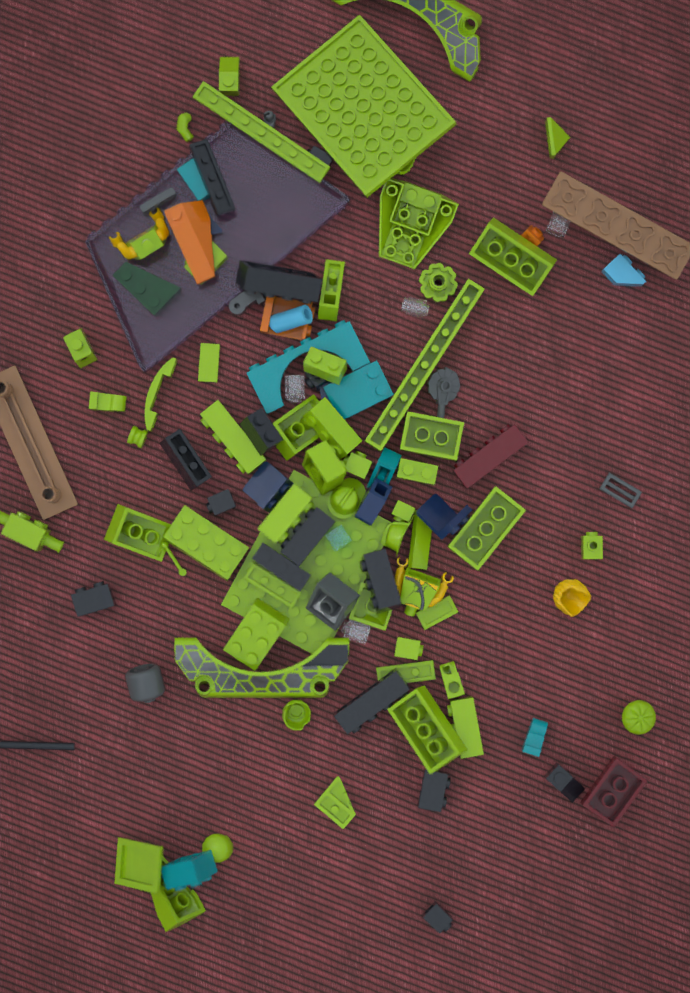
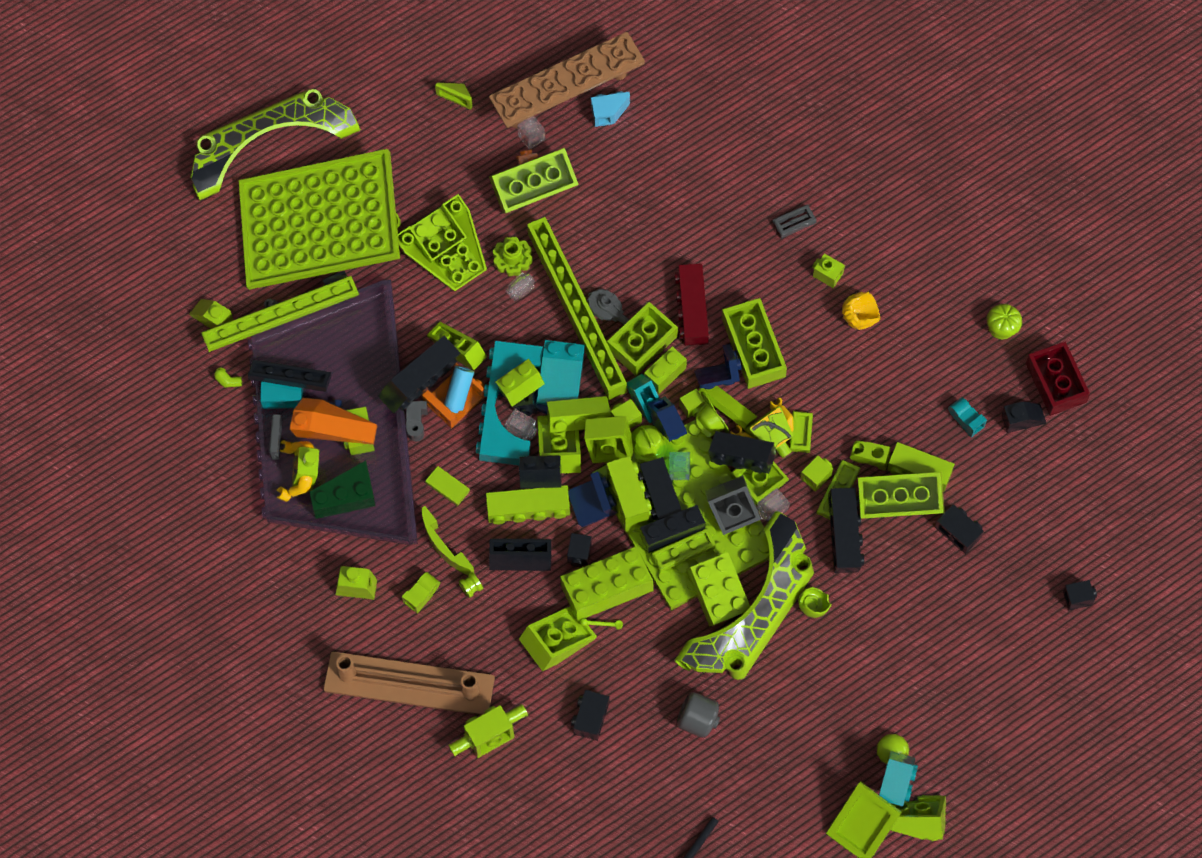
camera: 55 degrees left, 20 degrees down
(336, 803) = (919, 620): lime wing -> none

